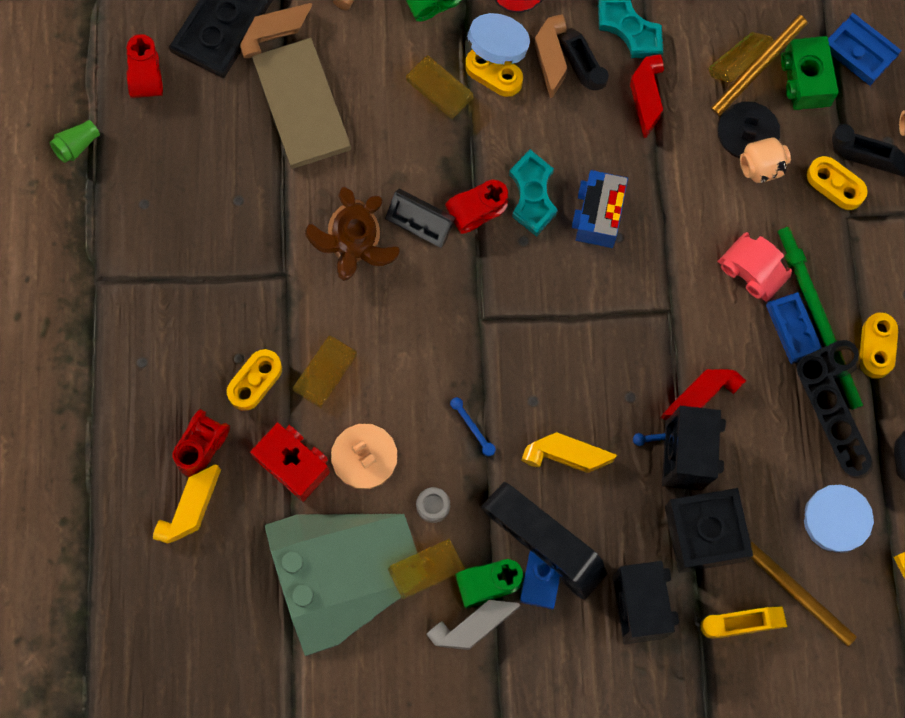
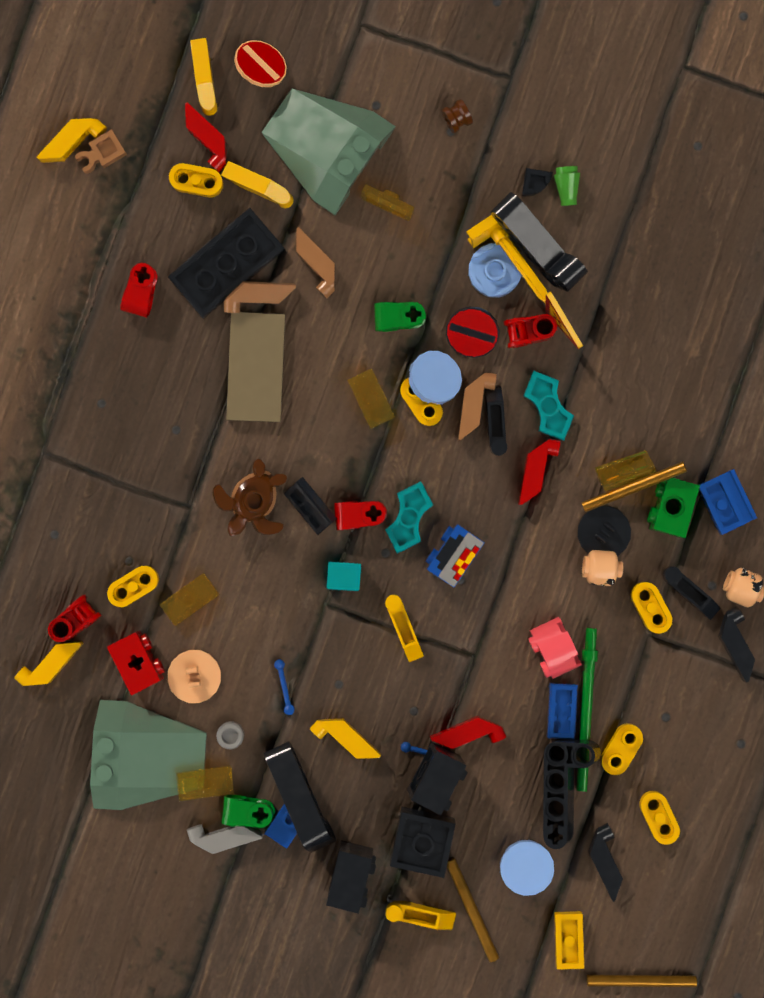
camera: 30 degrees right, 15 degrees up
(74, 141) = (64, 330): bright green cone -> none
(487, 274) = (344, 576): none -> teal panel
(578, 306) = (403, 627): none -> yellow piece

